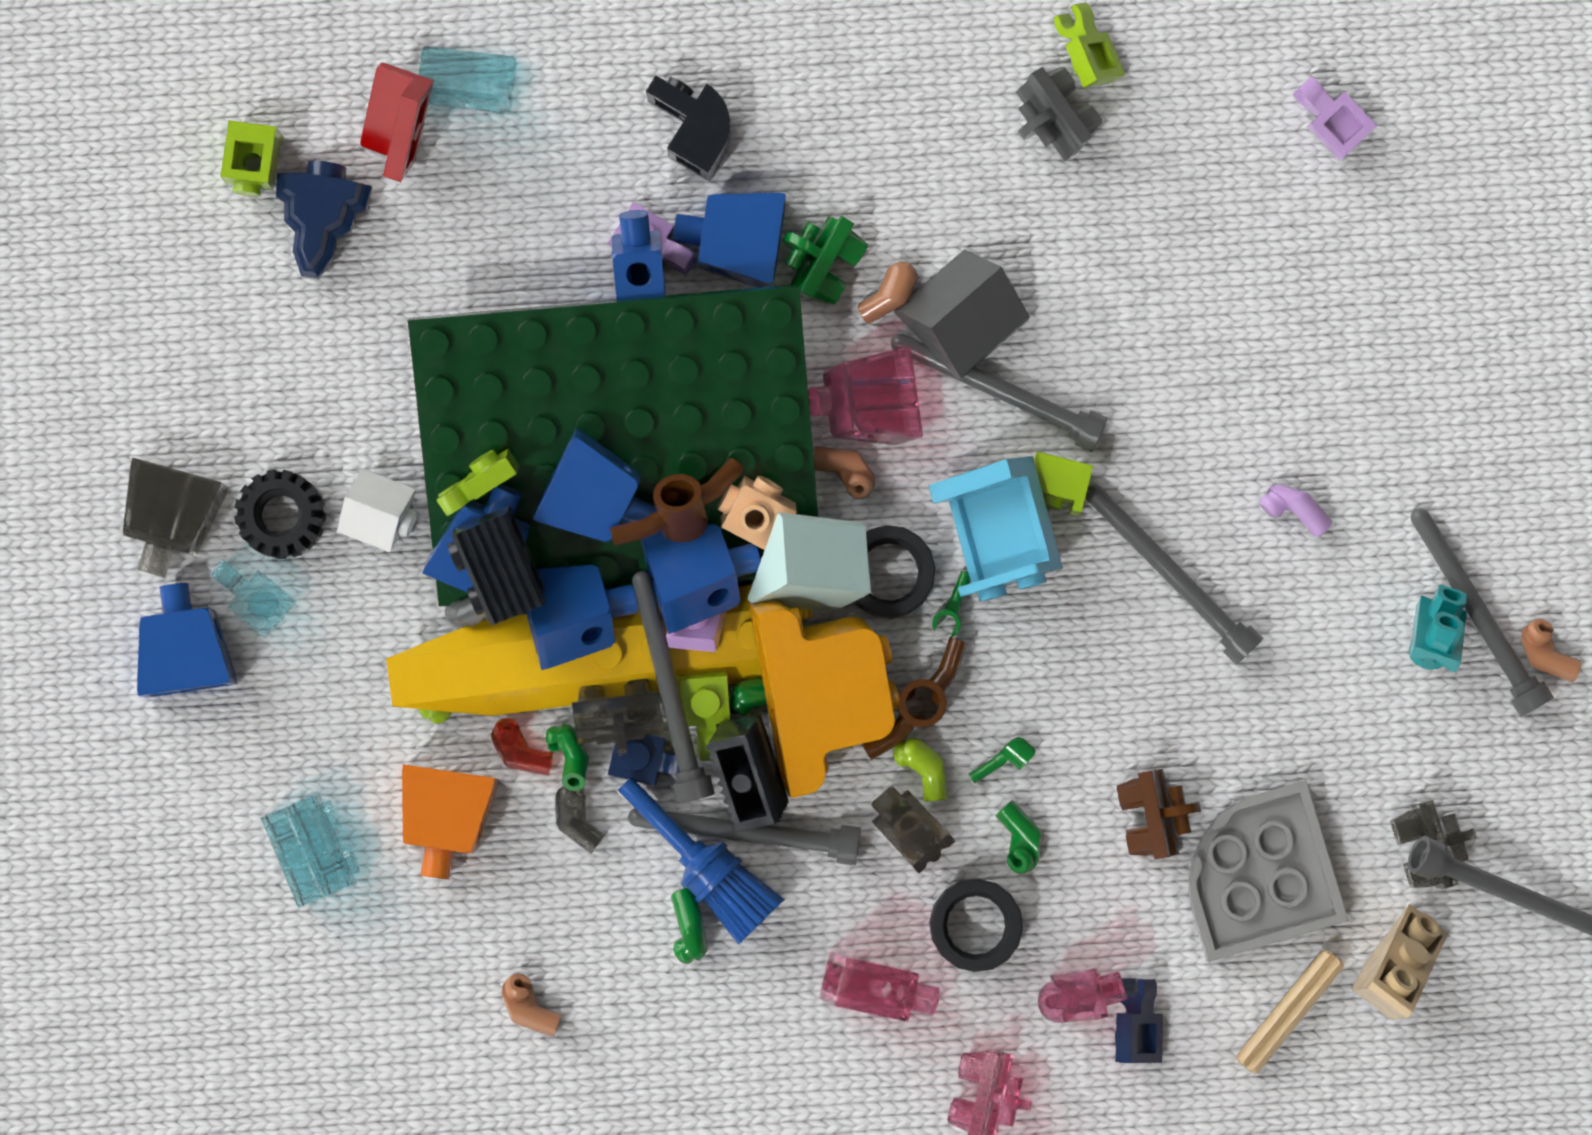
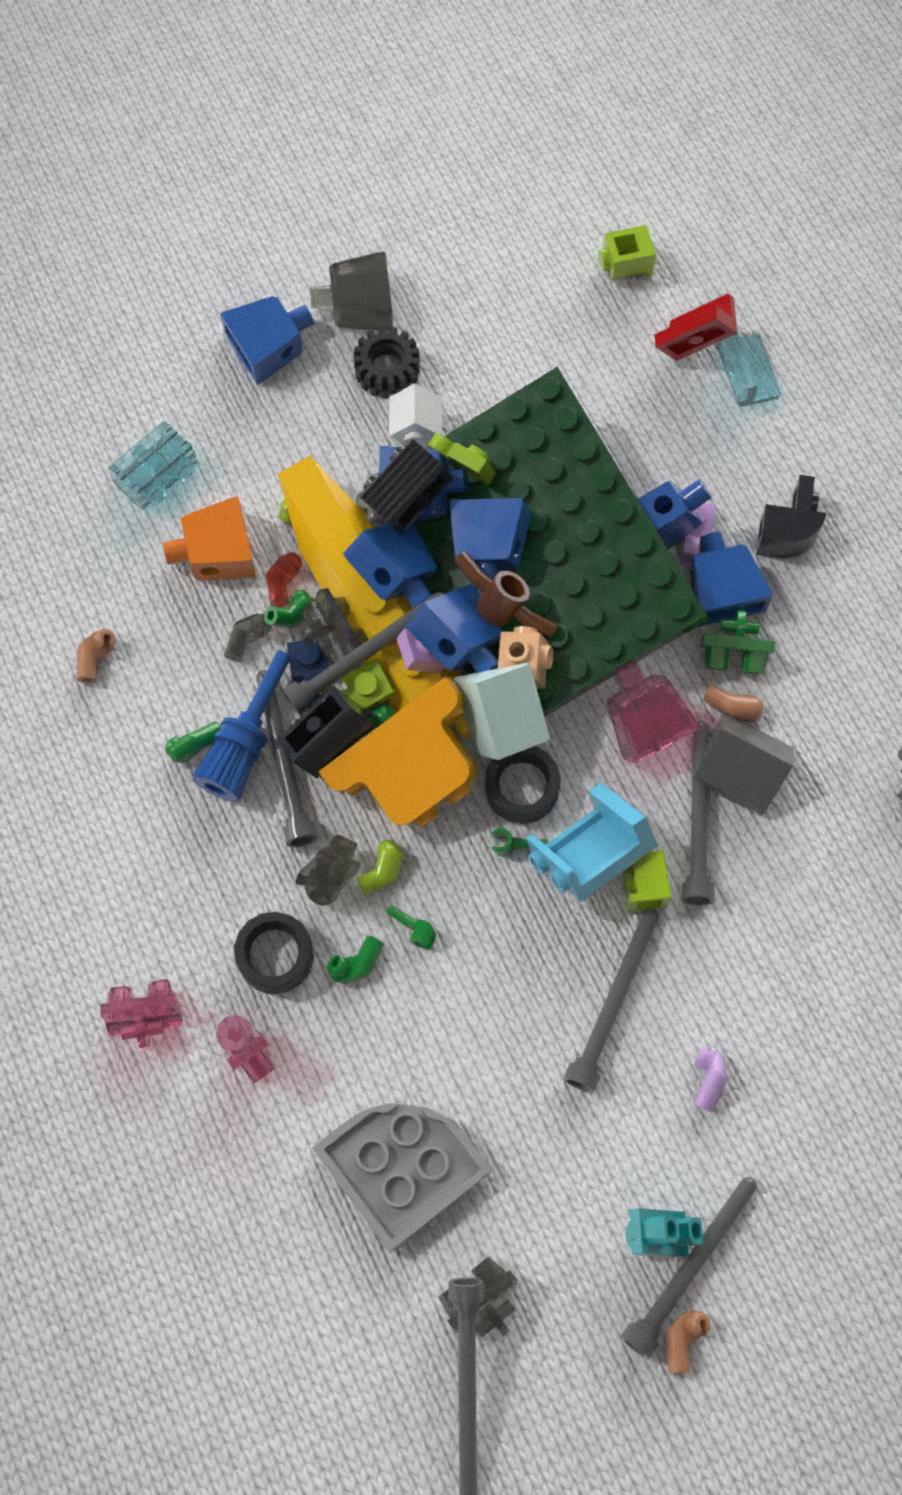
camera: 70 degrees right, 15 degrees down
(257, 600) = (320, 369): clear light blue plate -> none
(320, 211) = (610, 309): dark blue rock -> none
(850, 468) = (590, 726): nougat arm -> none
(860, 982) = (192, 873): clear pink torso -> none
(937, 685) = (435, 830): reddish brown piece -> none
(1139, 1029) = (235, 1114): dark blue plate -> none
(1152, 794) = (417, 1063): reddish brown hips -> none
(1290, 1011) = (297, 1235): tan axle -> none
(1401, 964) = (372, 1311): tan slope -> none

